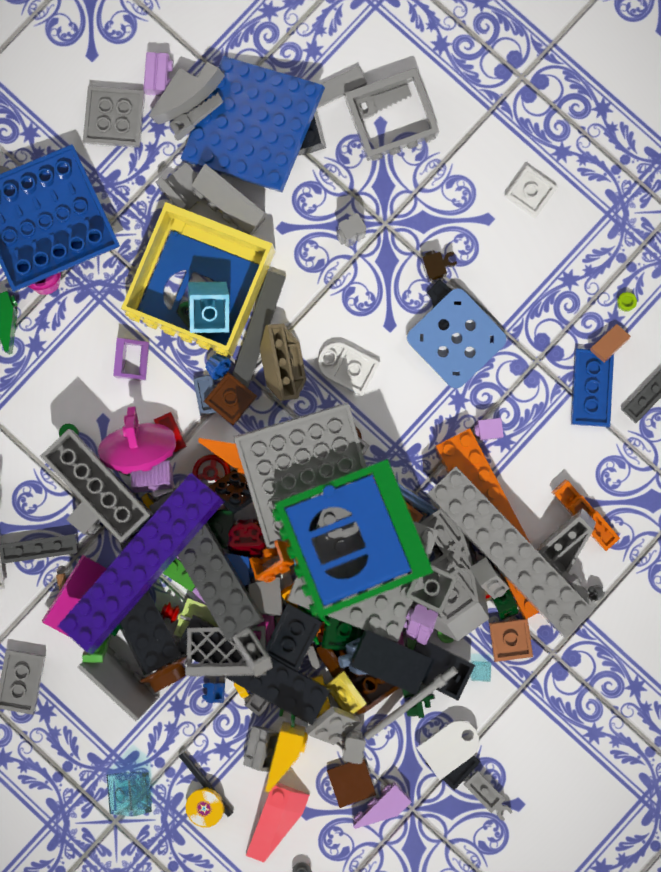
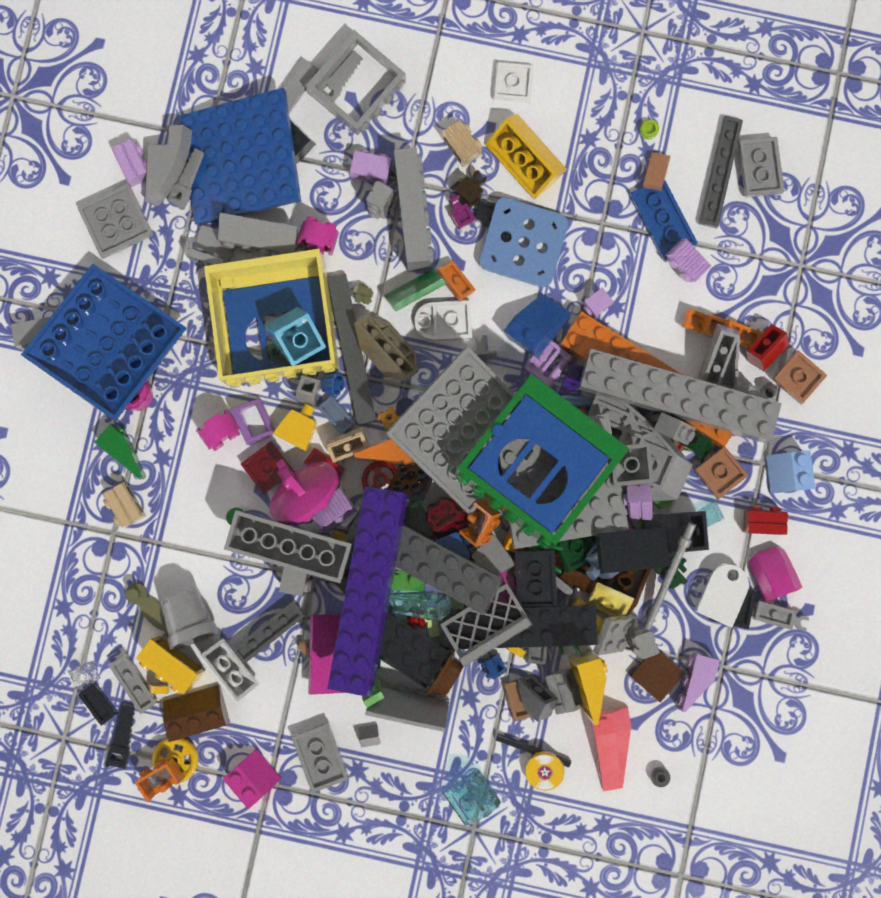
camera: 35 degrees left, 0 degrees up
(72, 688) = (369, 735): none -> light grey slope
(96, 349) = (218, 430): none -> dark pink brick
(115, 403) = (263, 467): none -> dark red plate
(166, 387) = (298, 427): none -> yellow torso
(181, 601) = (422, 604): none -> clear light blue slope
(193, 360) = (308, 390): none -> light grey brick
(199, 426) = (347, 444): none -> tan brick
(218, 732) = (515, 700): none -> medium nougat tile
(230, 398) = (360, 405): reddish brown tile -> none
(234, 740) = (536, 697): none -> dark grey slope
(252, 652) = (511, 611): light grey brick -> none
(253, 420) = (384, 417): none -> light orange plate
(268, 420) = (403, 404): none -> dark blue tile
(279, 230) = (318, 235): none -> dark pink brick
(289, 302) = (362, 293): none -> olive plant
(336, 325) = (415, 289): none -> green tile
(362, 196) = (371, 167): none -> lavender brick
(365, 411) = (482, 349): none -> light grey bracket
(374, 255) = (412, 207): none -> light grey brick
(377, 338) = (456, 281): none -> orange plate
(413, 450) = (539, 366): none -> lavender plate
(416, 283) = (461, 214): none -> magenta plate
(425, 417) = (537, 325): none -> blue slope
(427, 482) = (571, 379): none -> dark purple tile
(453, 219) = (462, 143): none -> tan brick
(502, 263) = (525, 156): none -> yellow slope
(505, 755) = (774, 573): none -> dark pink slope
(524, 706) = (765, 522): none -> red brick
(571, 675) = (790, 471): none -> light blue slope
(590, 437) = (687, 261): none -> lavender brick
(616, 554) = (767, 347): none -> red brick
(629, 597) = (799, 377): none -> nougat plate

